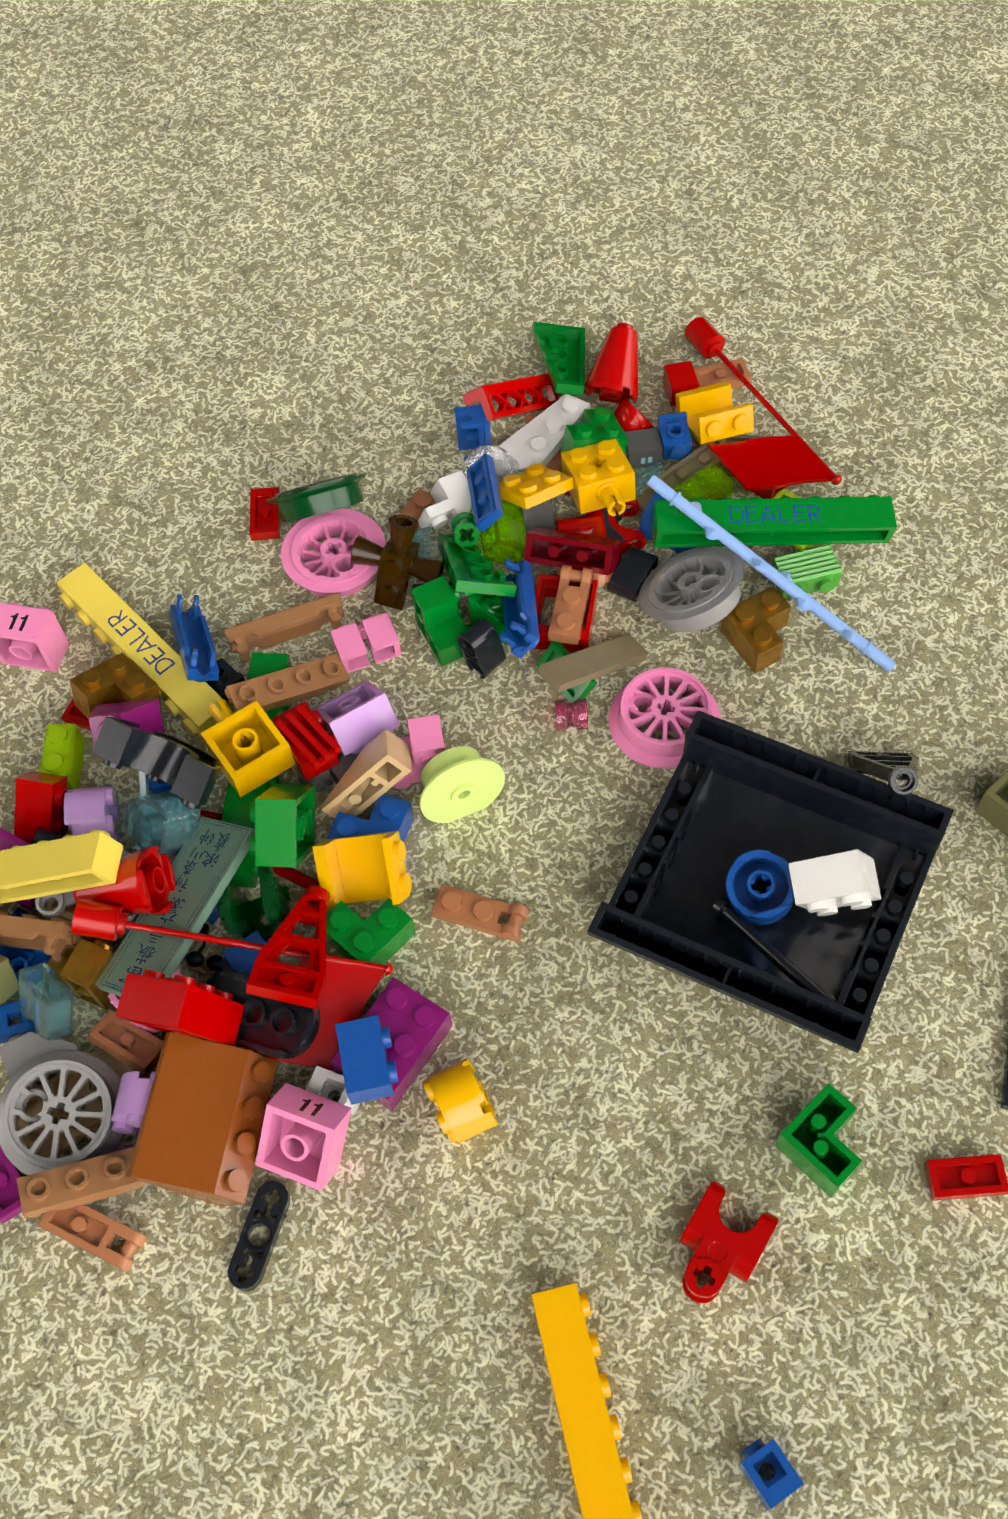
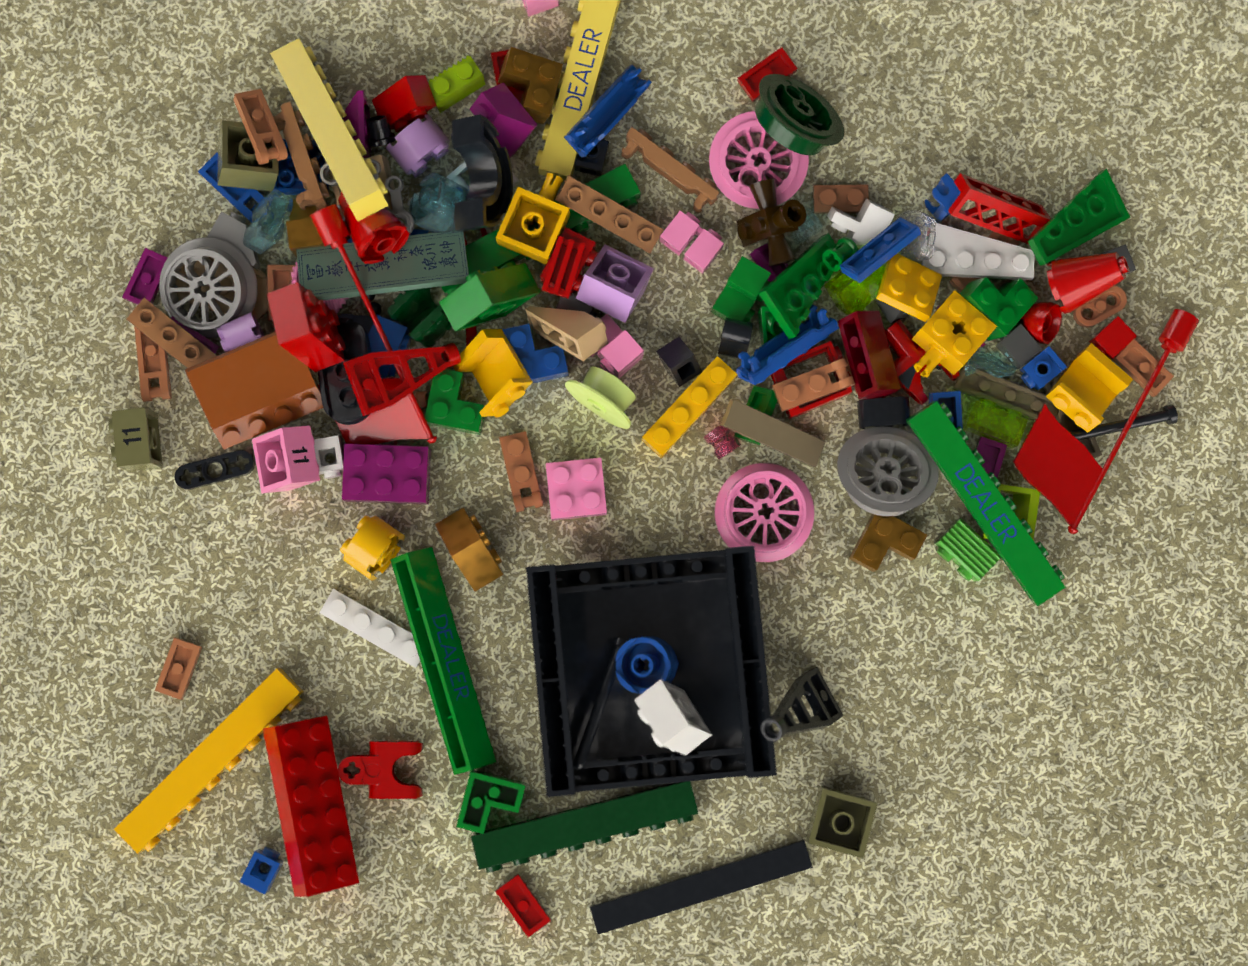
camera: 50 degrees right, 25 degrees up
(161, 1296) = (135, 439): none -> olive brick
(365, 1059) = (353, 470): blue brick -> none
(458, 1427) = (178, 668): none -> nougat plate
(470, 707) = (679, 361): none -> black brick
(520, 724) = (689, 407): none -> yellow brick
(528, 998) = (470, 548): none -> pearl gold brick
(533, 865) = (576, 489): none -> bright pink brick
(551, 1161) = (371, 627): none -> white plate
(636, 1100) = (443, 660): none -> green brick
(649, 382) = (1100, 308): none -> nougat plate
(724, 1355) = (311, 806): none -> red brick
(773, 378) = (1168, 414): none -> black bar
(782, 579) = (928, 518): light blue plant -> none
(902, 1062) = (584, 824): none -> dark green brick

